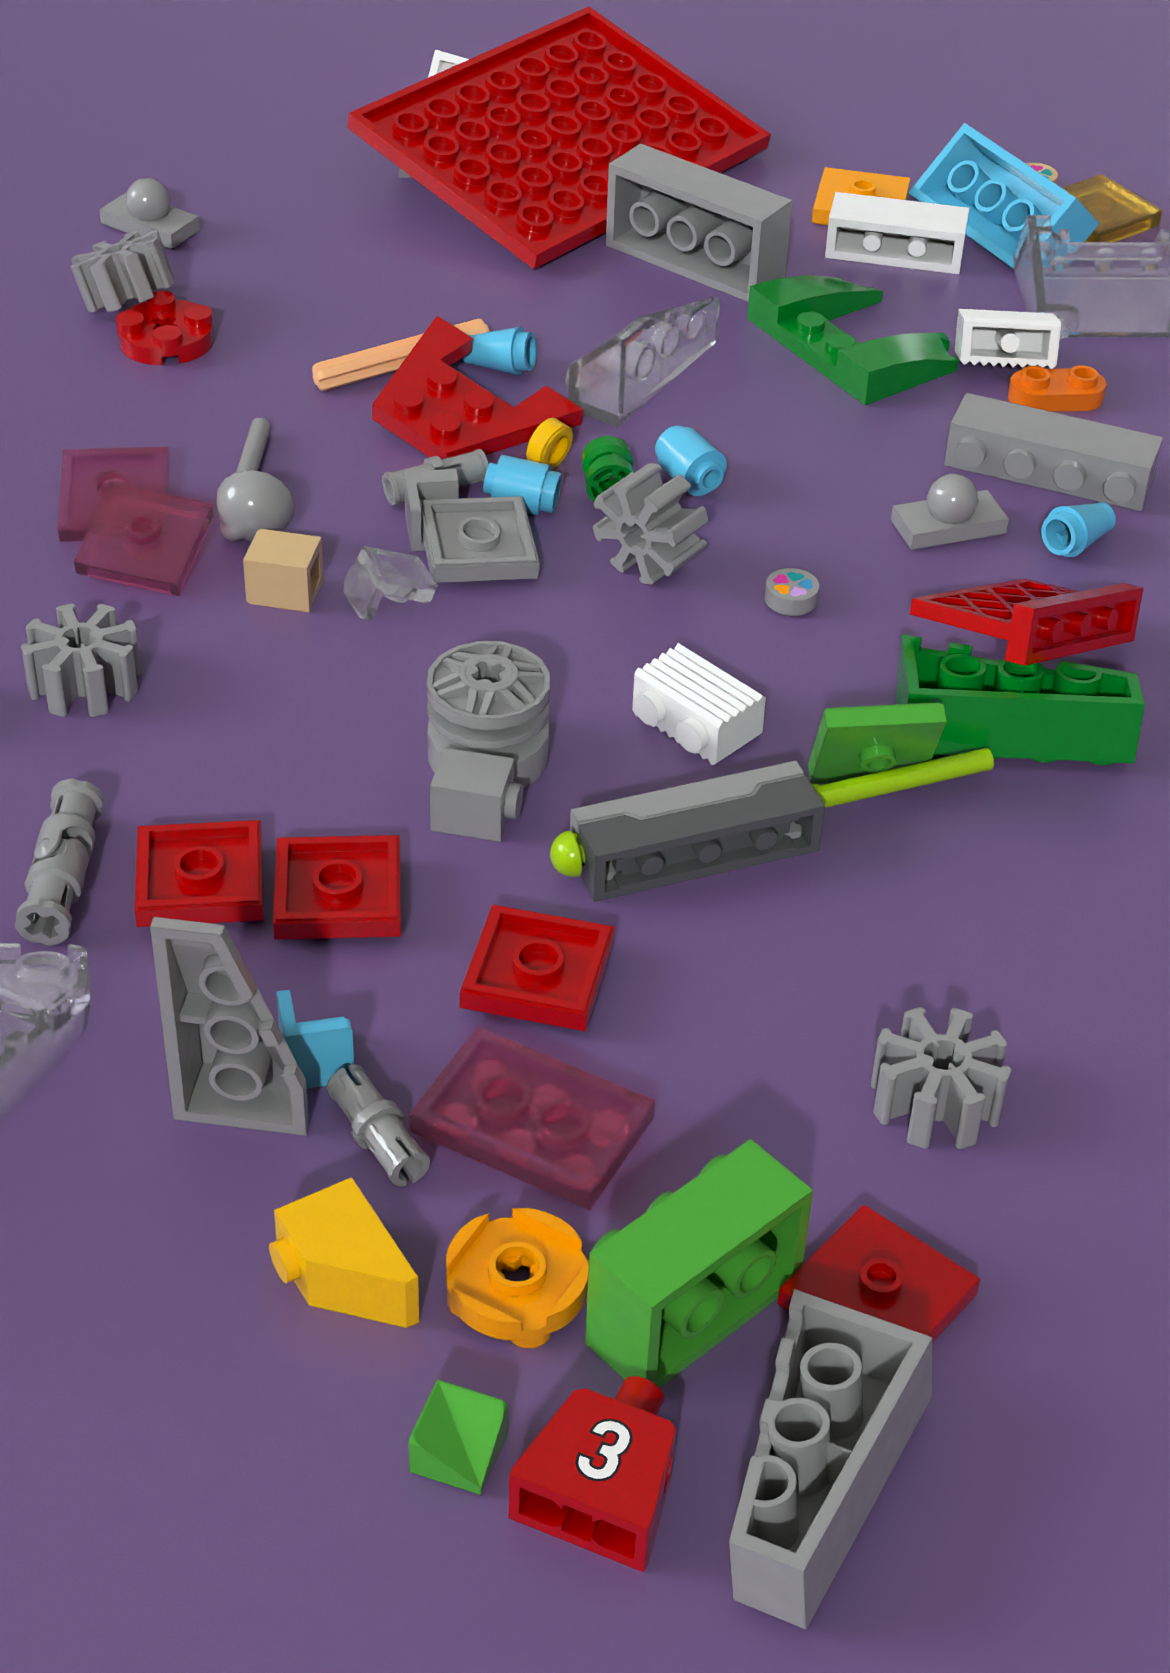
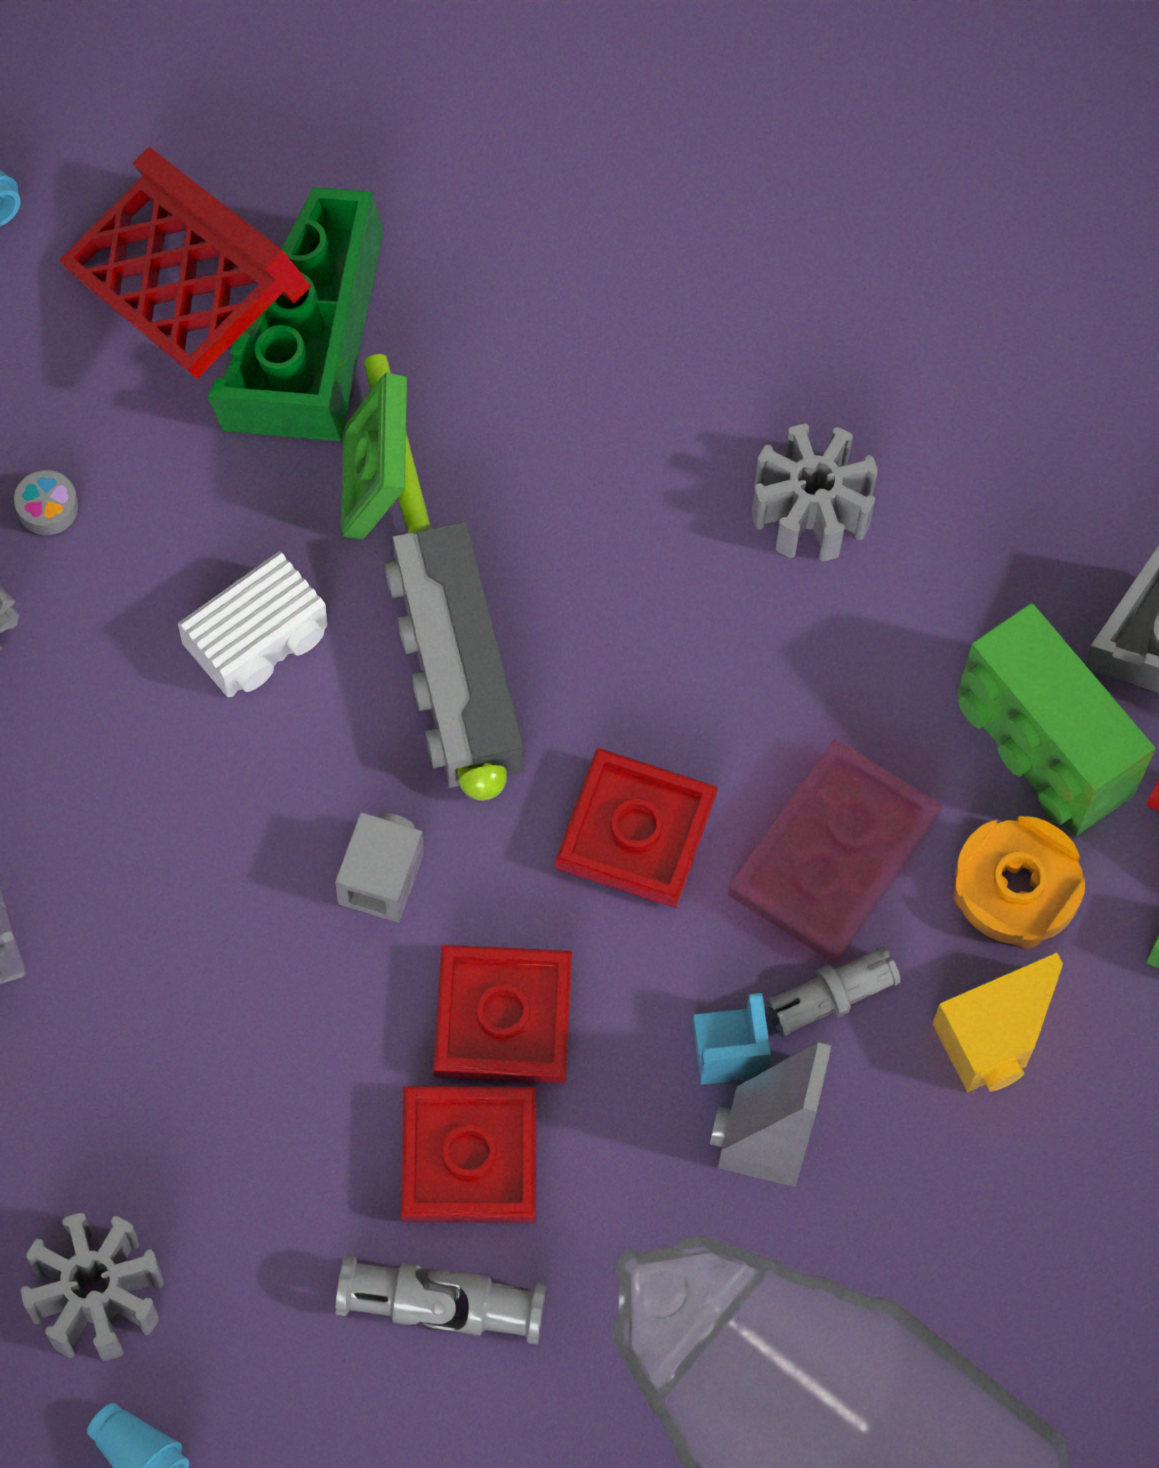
camera: 85 degrees left, 25 degrees up
(492, 703) = (270, 868): light grey wheel -> none
(885, 1275) = (1044, 568): red plate -> none

